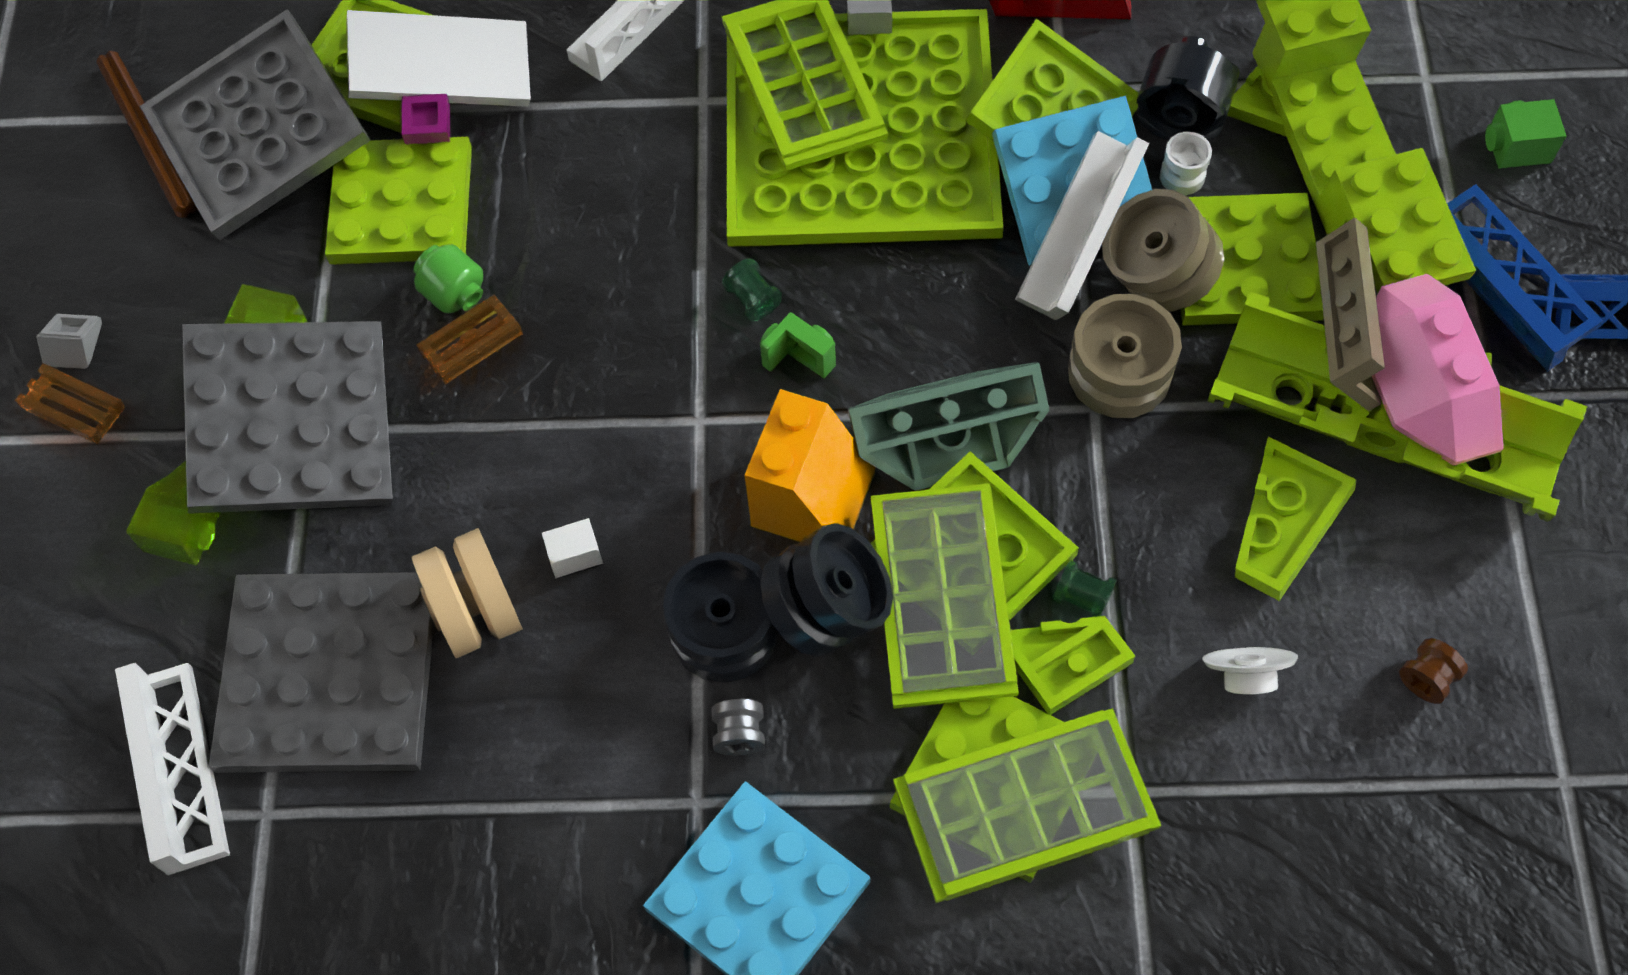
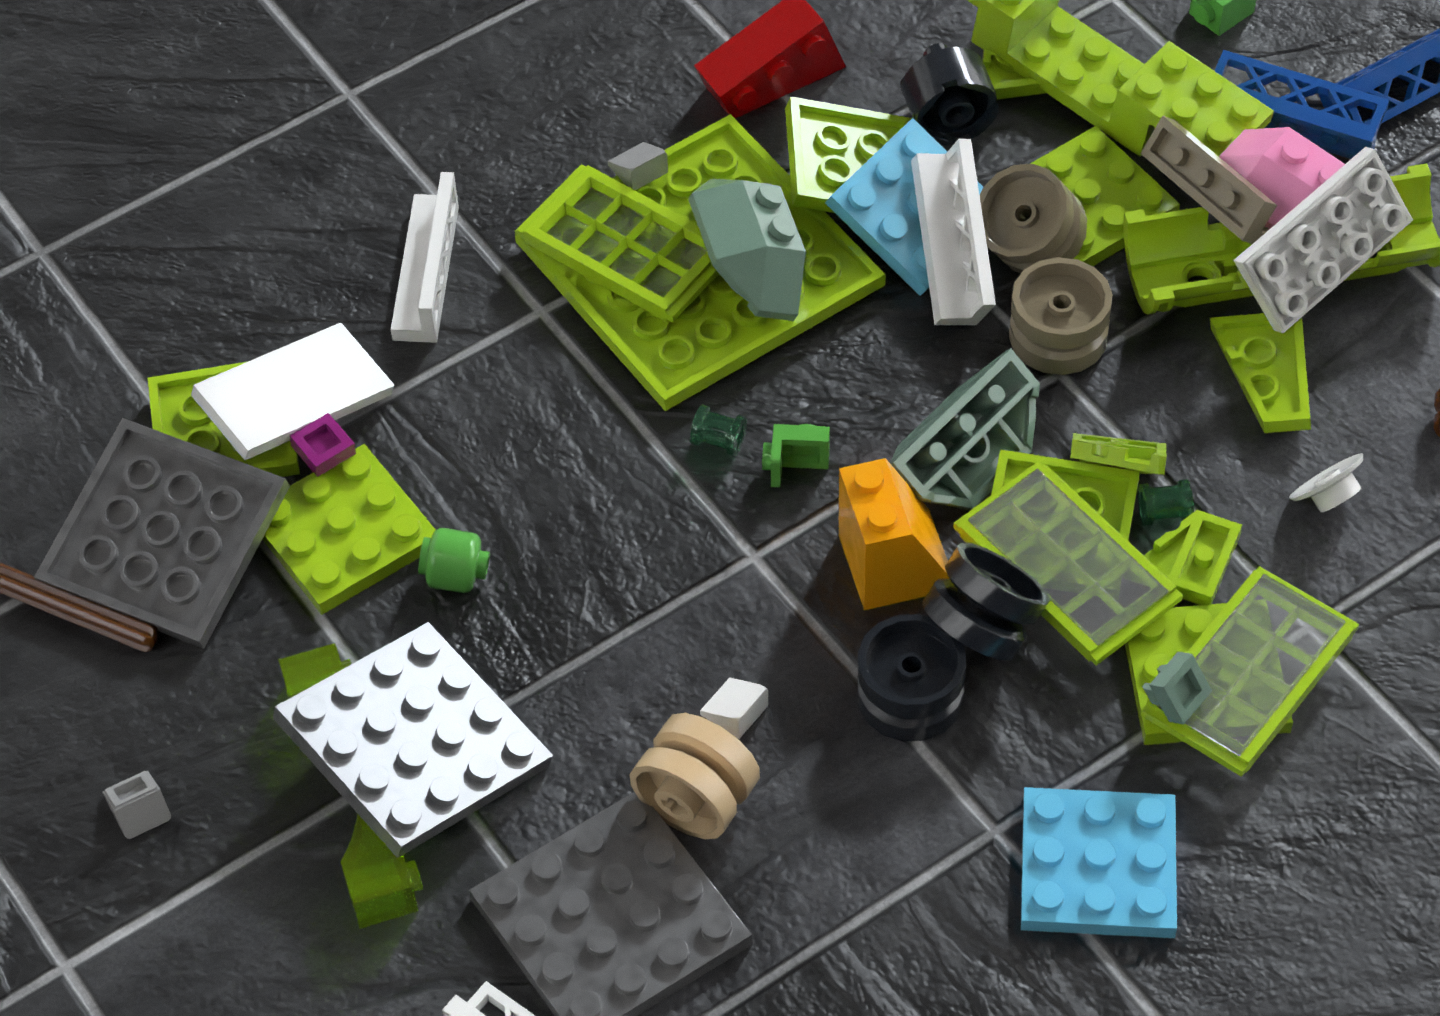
camera: 35 degrees left, 10 degrees down
(42, 388) = (187, 843): clear orange tile -> none
(474, 344) = (494, 632): clear orange tile -> none
(738, 727) = (987, 751): flat silver wheel -> none
(892, 134) = (752, 243): none -> sand green wedge
(929, 785) = (1178, 688): none -> sand green tile
(1078, 520) = (1119, 452): none -> lime wing
(1185, 162) = (989, 148): white wheel -> none
(1416, 426) = (1323, 240): none -> white tile

